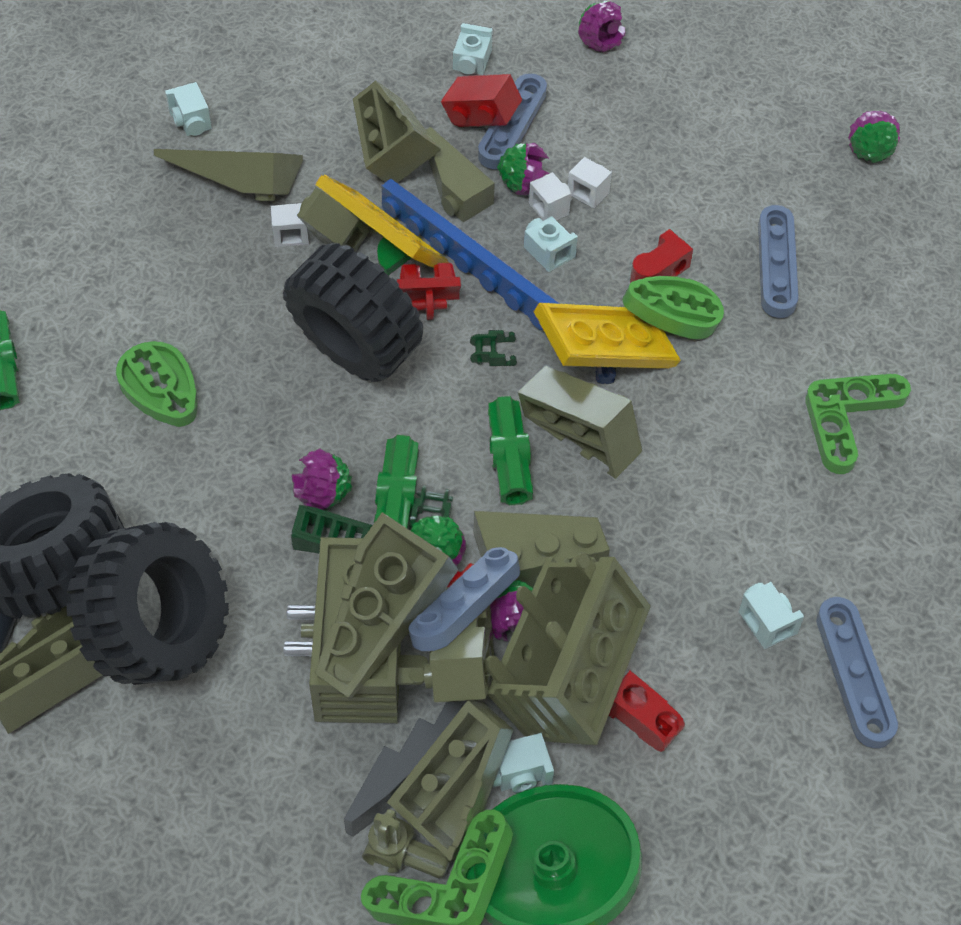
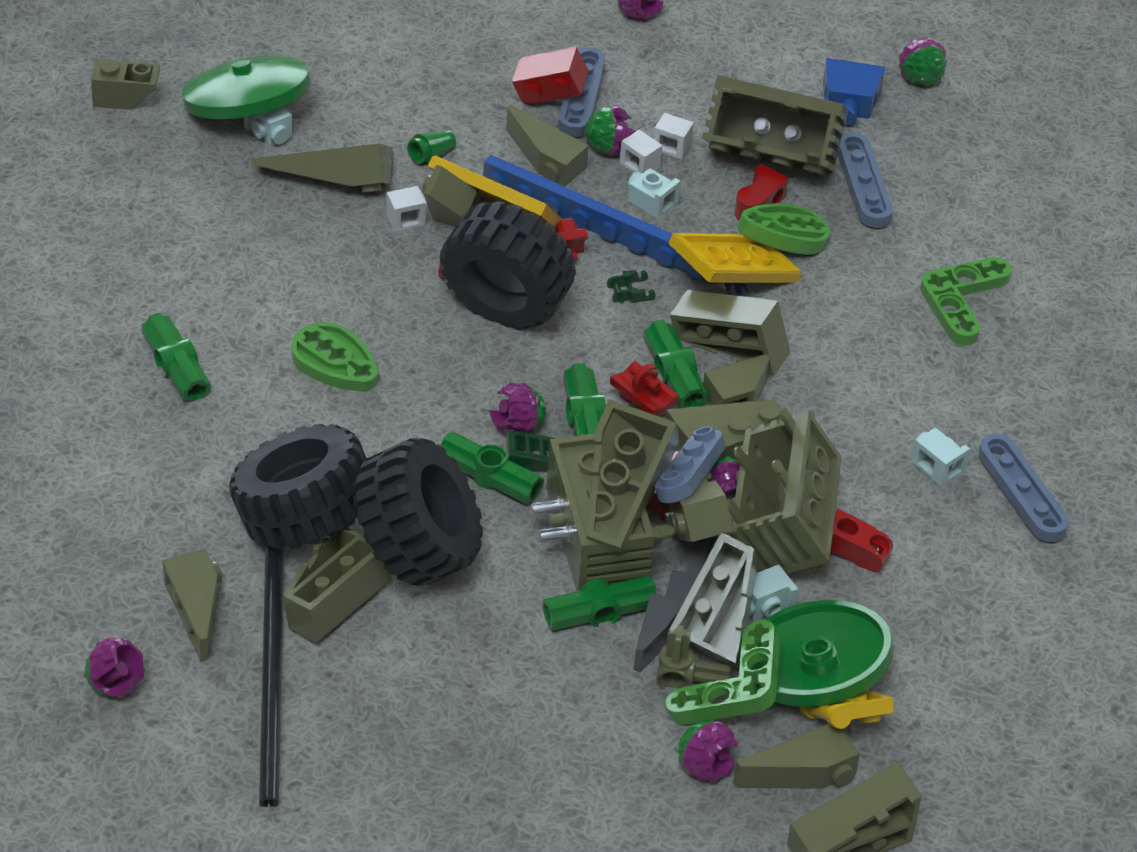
camera: 15 degrees left, 10 degrees down
(60, 50) = (122, 83): none -> olive slope
(176, 72) = (246, 87): none -> green dish
(255, 531) = (492, 468): none -> green piece
(330, 739) = (598, 602): none -> green piece
(339, 159) = (430, 145): none -> green cone
(390, 134) = (475, 116): olive wedge -> none
(465, 478) = (643, 388): none -> red hips
(472, 49) = (522, 32): light aqua brick -> none
(569, 486) = (737, 381): none -> olive slope
(693, 189) = (775, 125): none -> olive piece
(792, 156) = (854, 86): none -> blue torso

